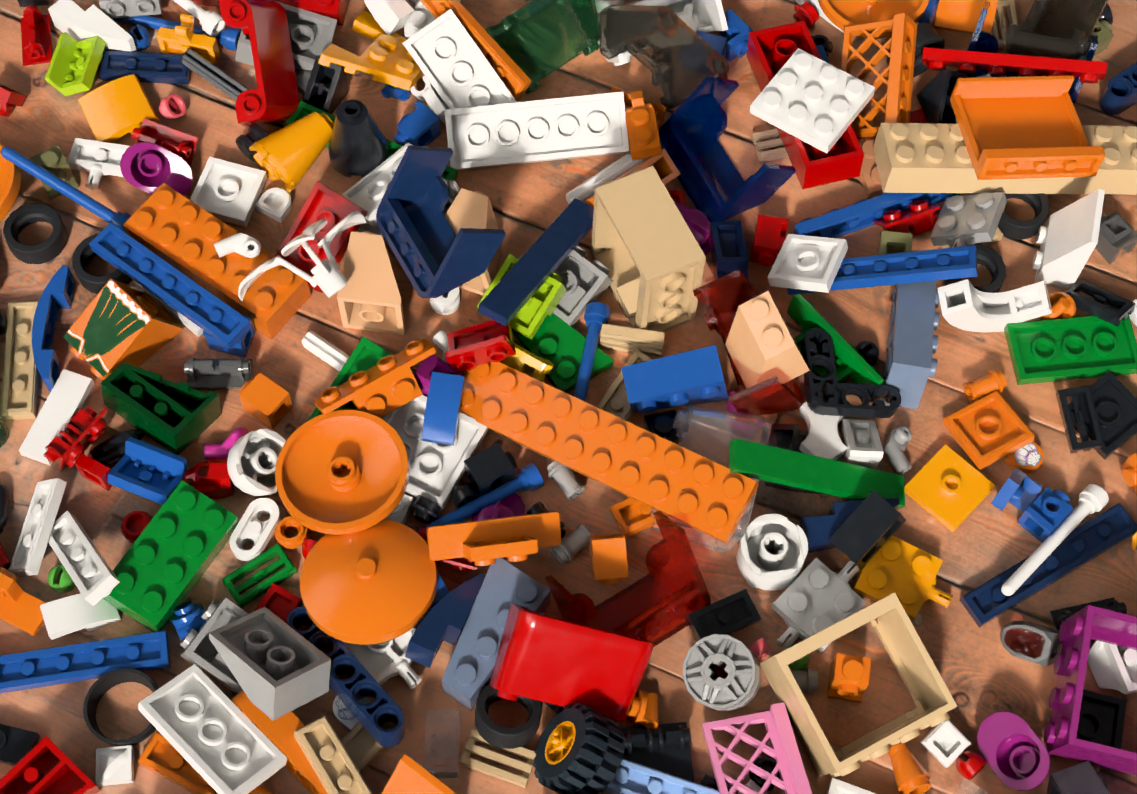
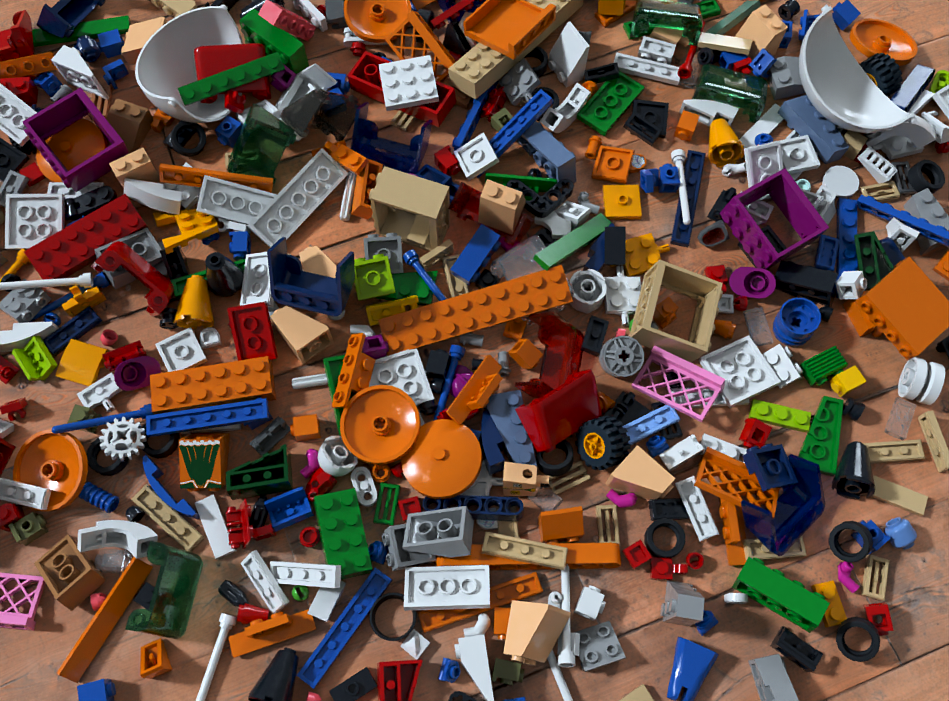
camera: 45 degrees left, 5 degrees up
(50, 217) = (122, 448): none -> white gear
(212, 74) = (117, 304): axle -> none
(240, 244) = (222, 368): white arm -> none
(325, 274) = (282, 344): white plant -> none
(433, 697) = (522, 479): none -> light nougat torso
(442, 408) = (393, 356): blue slope -> none
(479, 345) = (379, 314): red bracket -> none
(538, 263) = (368, 255): dark blue tile -> none
(975, 701) = (717, 273): none -> red plate

